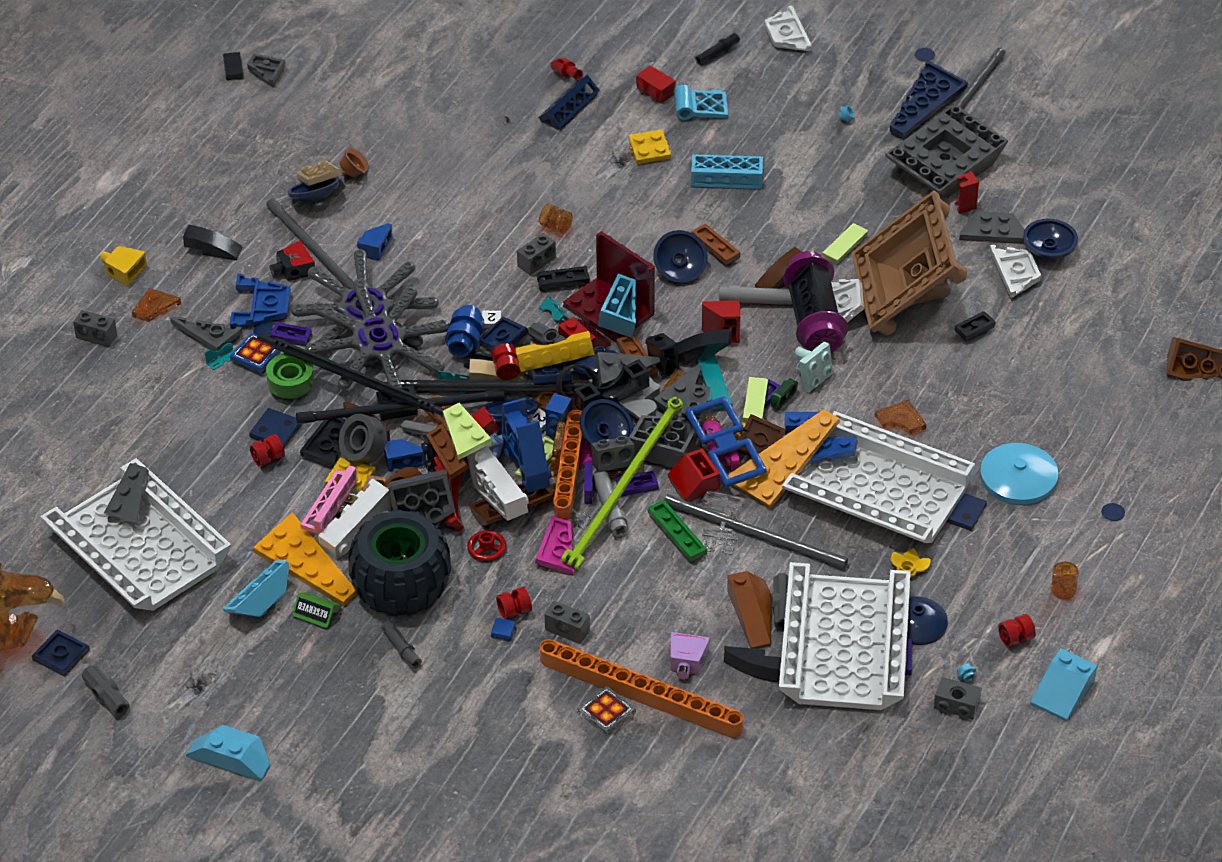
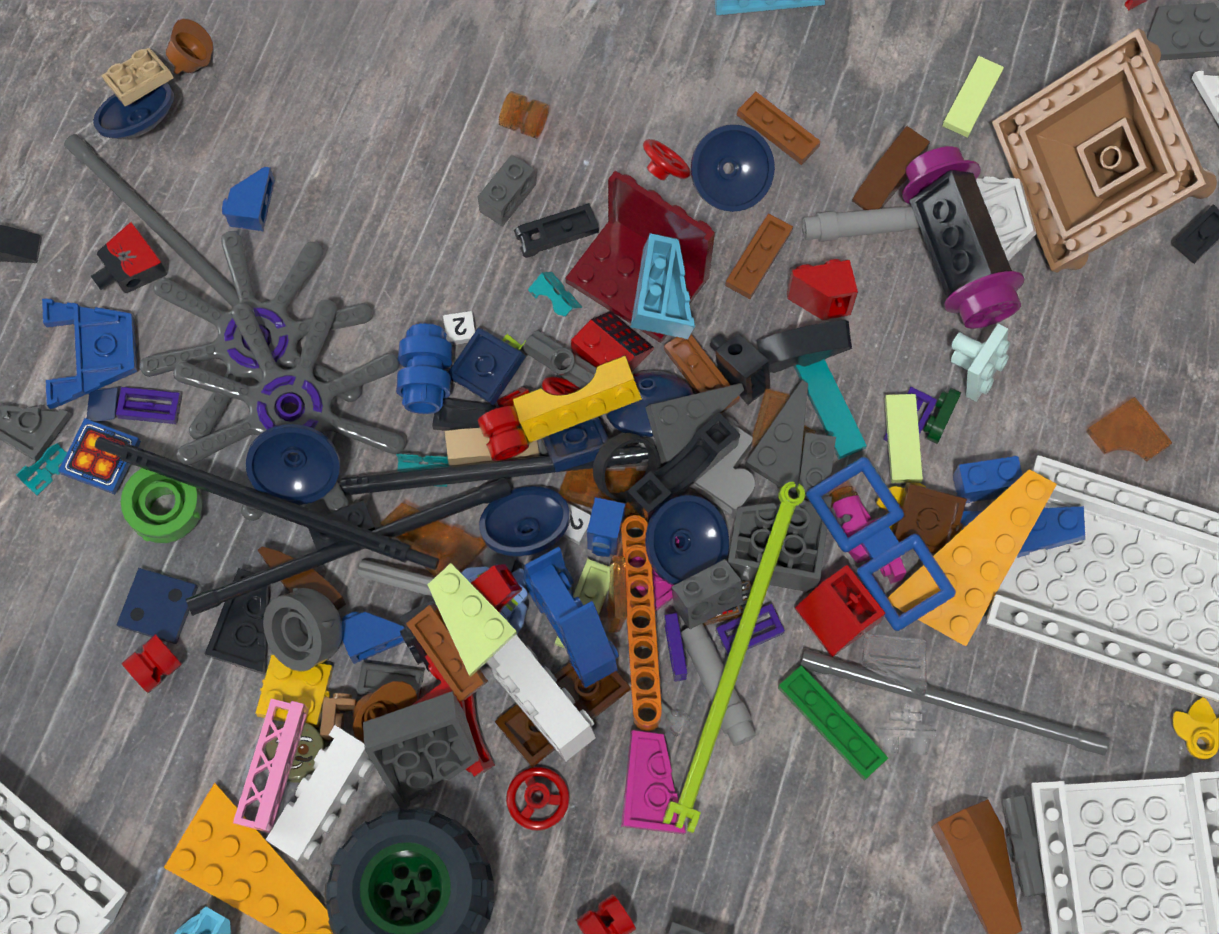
camera: 10 degrees left, 25 degrees up
(361, 349) = (293, 477): none -> dark blue dish
(639, 249) = (665, 161): none -> red piece
(687, 305) = (759, 256): none -> dark orange plate

